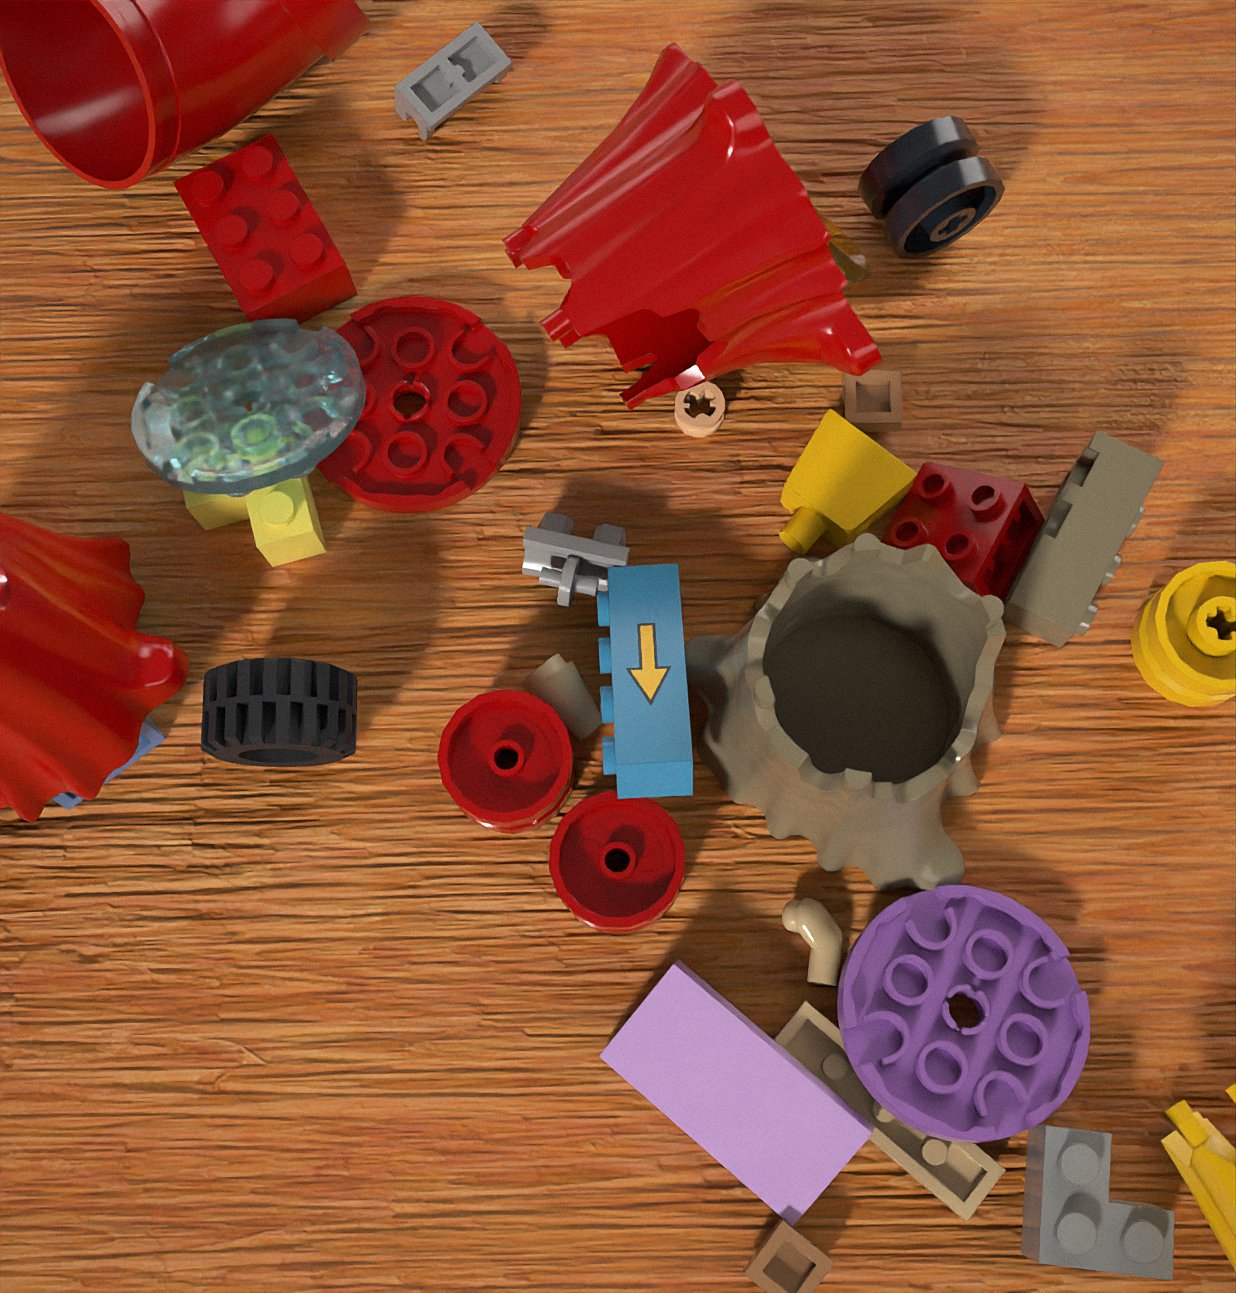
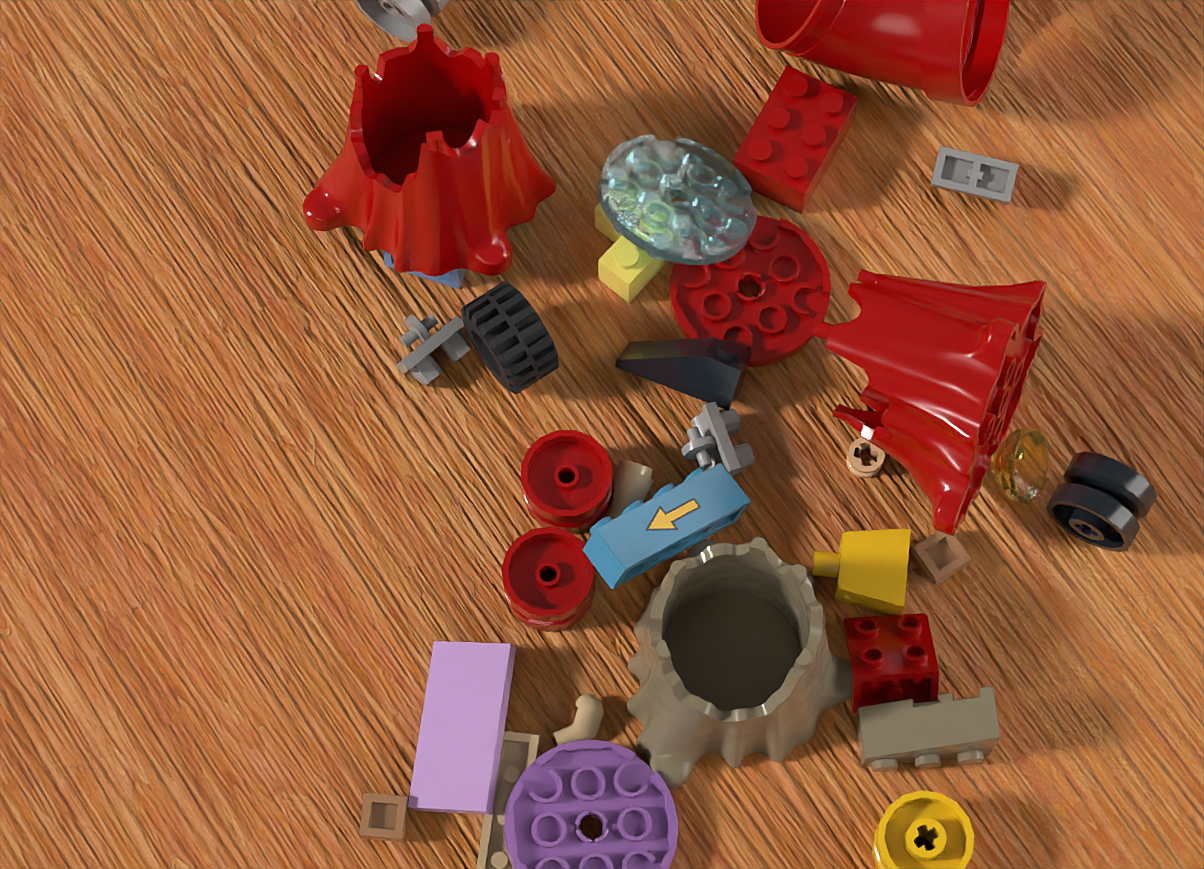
camera: 55 degrees right, 5 degrees down
(223, 845) = (419, 361): none -> light grey hips
(464, 523) = (696, 366): none -> black slope

